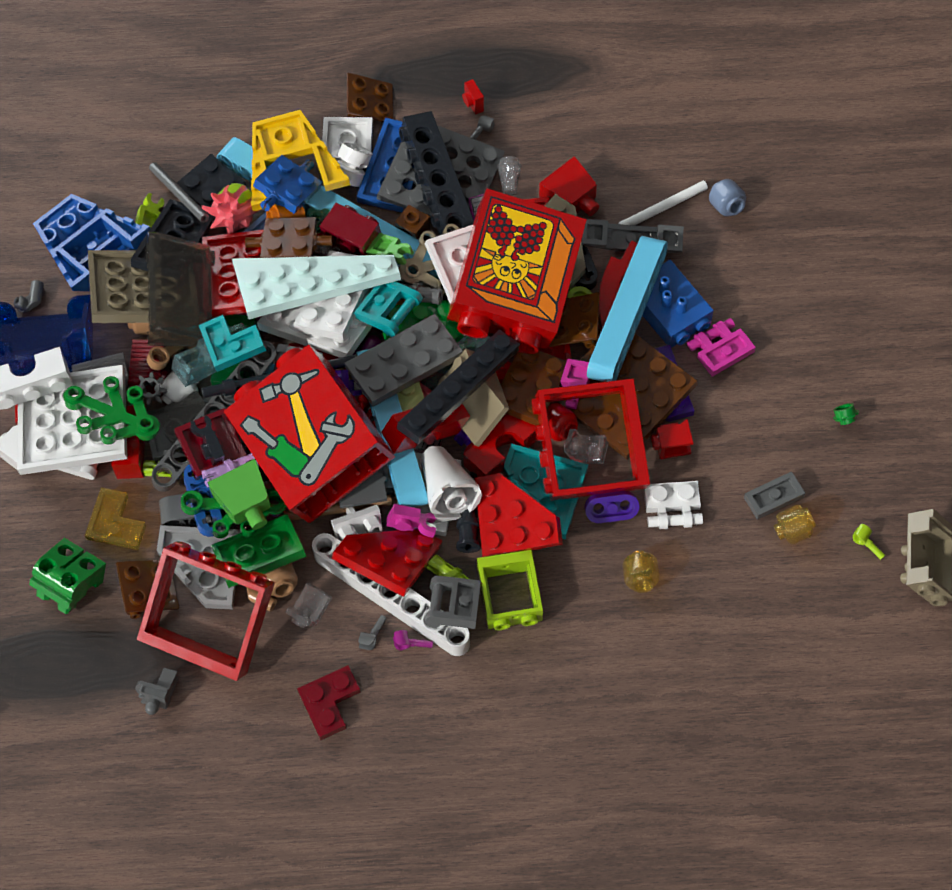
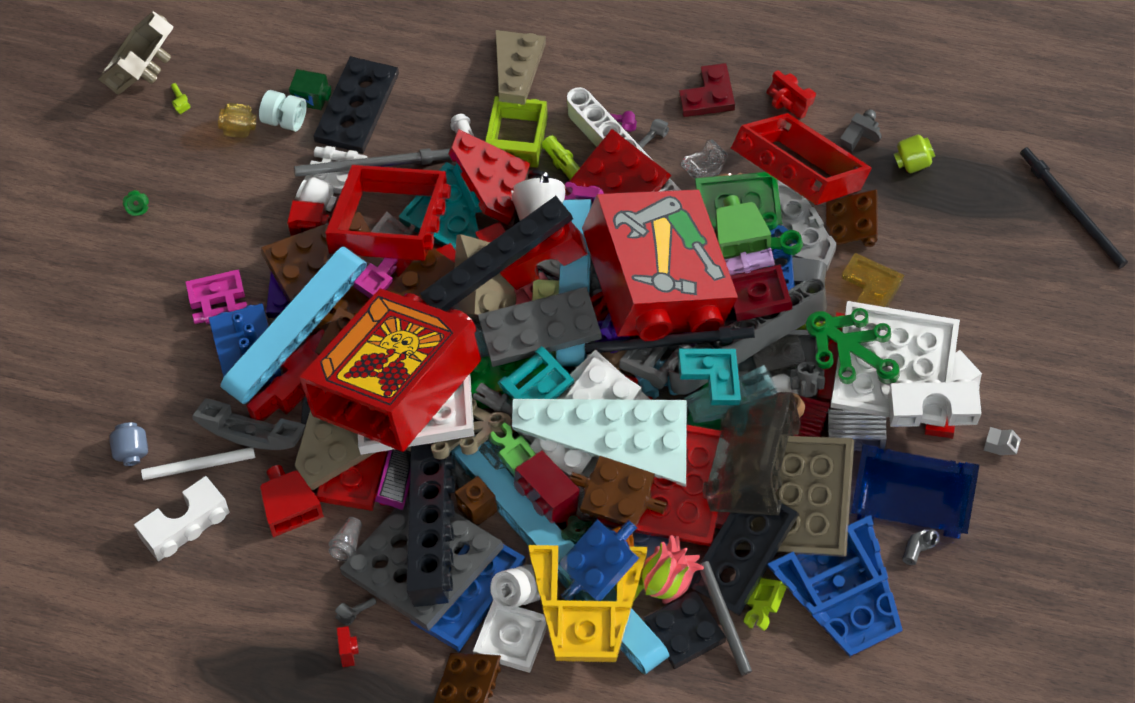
camera: 160 degrees left, 5 degrees down
(66, 577) = (926, 238): green hips -> none
(97, 675) = (914, 153): none -> lime head
(211, 447) = (759, 274): black plate -> none
(251, 720) = (788, 94): none -> red hips
(462, 603) = (564, 114): dark grey plate -> none
(538, 670) = (517, 64): none -> dark tan wing
(569, 585) = (461, 122): none -> white pin
(593, 541) = (424, 157): none -> dark grey bar
(641, 571) = (392, 117): clear yellow head -> none
(660, 138) = (166, 535): none -> white arch
(672, 597) = (364, 116): none -> black plate
(676, 464) = (317, 191): none -> white head
(739, 580) = (311, 87): none -> dark green brick
(753, 545) = (278, 109): none -> light aqua wheel
(774, 495) = (240, 151): dark grey plate -> none

